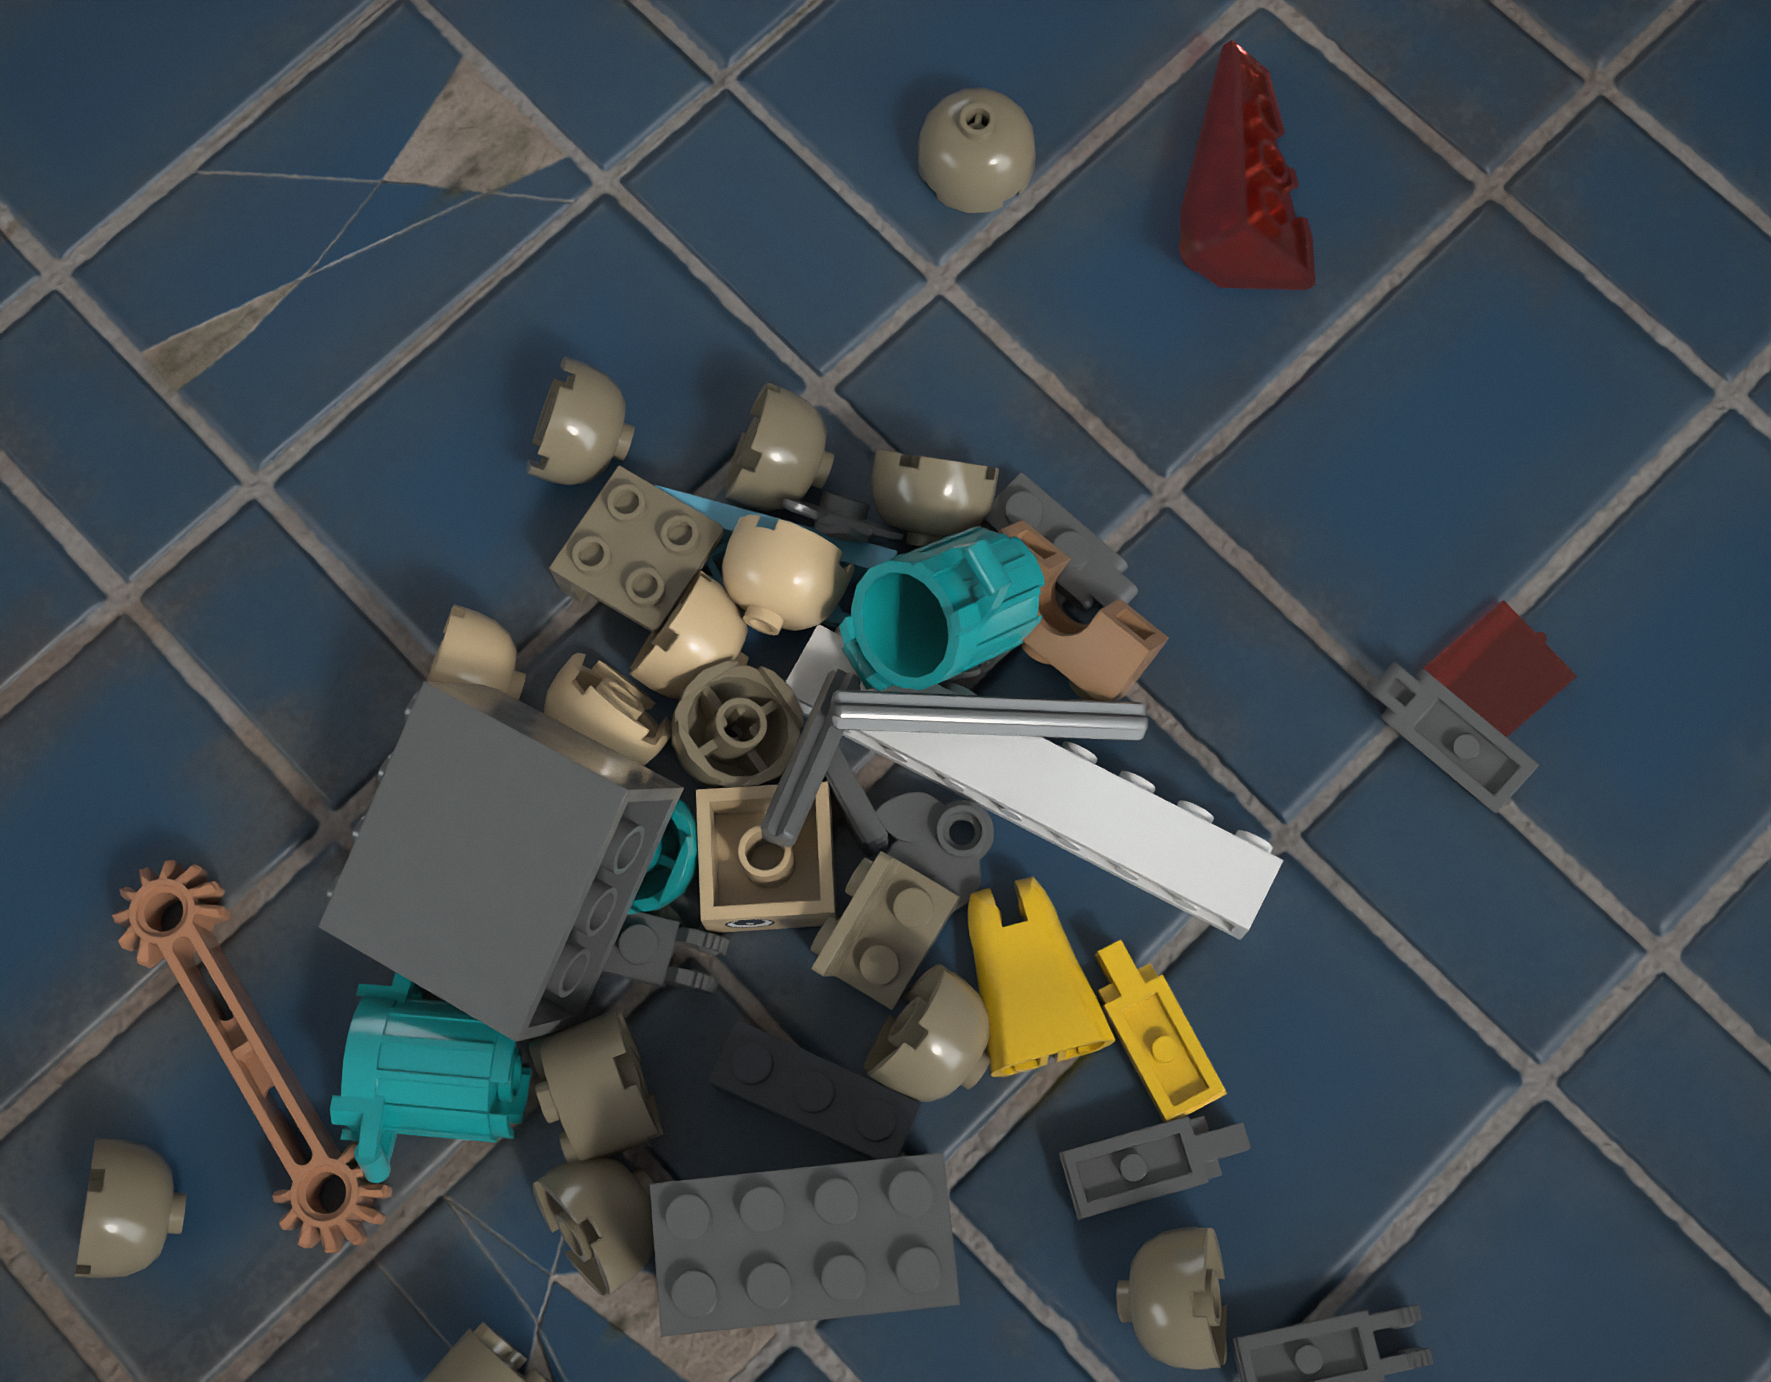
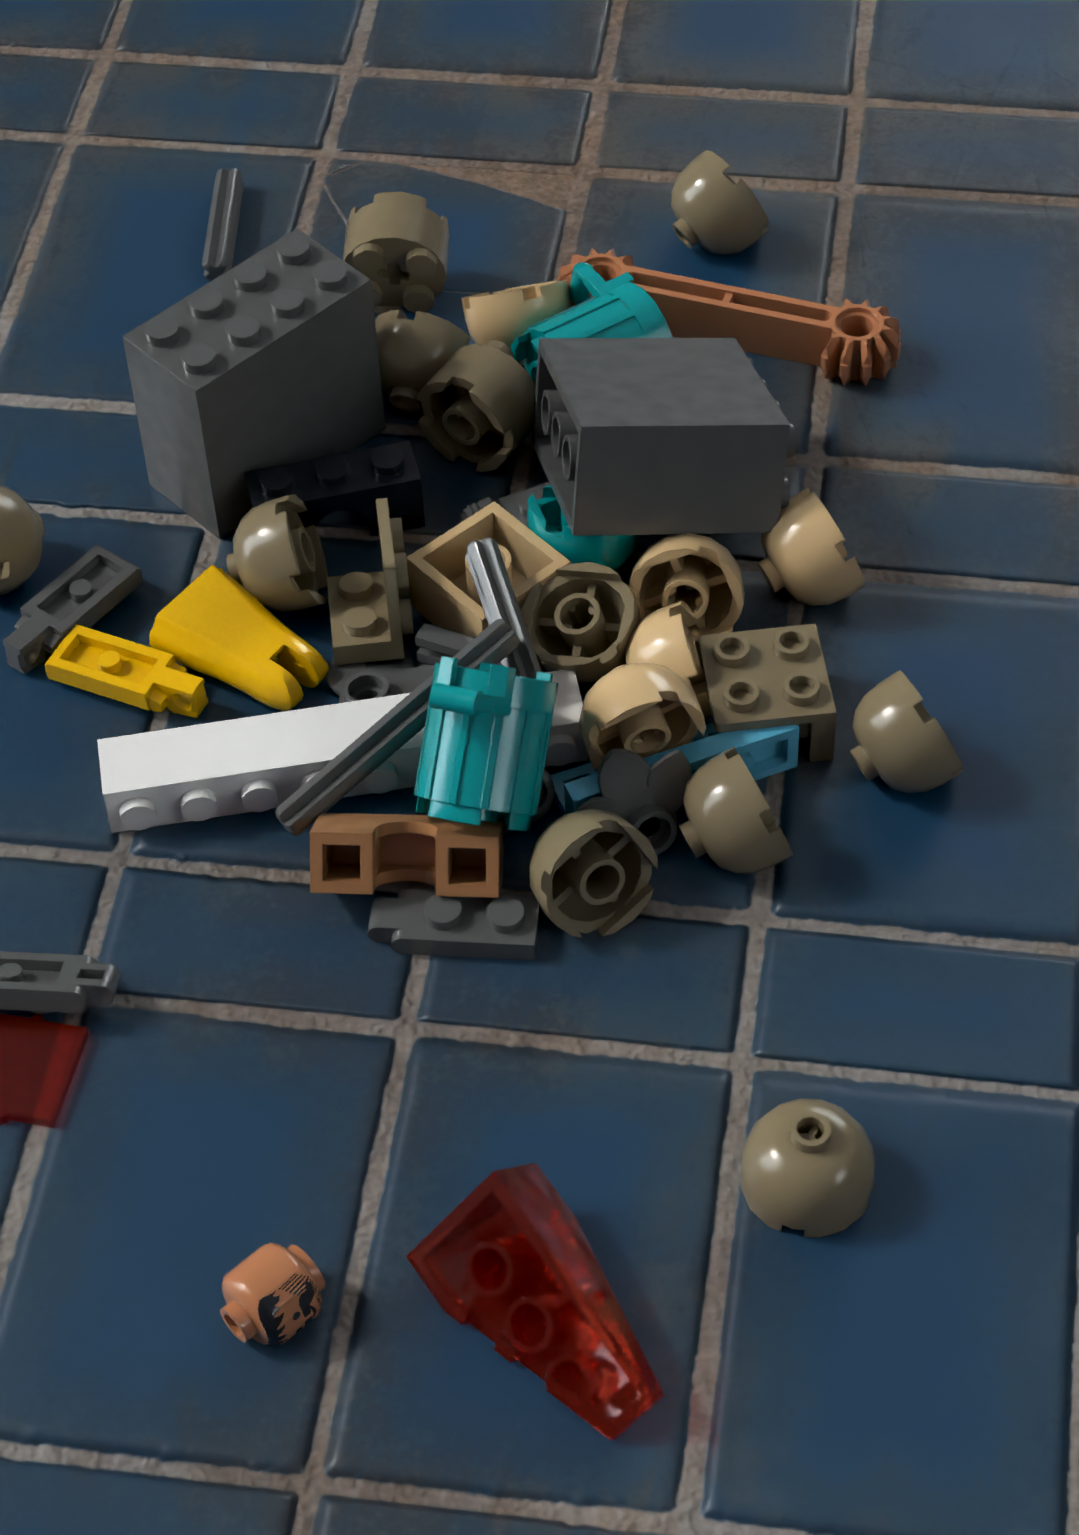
camera: 140 degrees right, 25 degrees down
(449, 1204) = (512, 310): none -> tan cylinder
(1435, 318) = (272, 1294): none -> nougat head

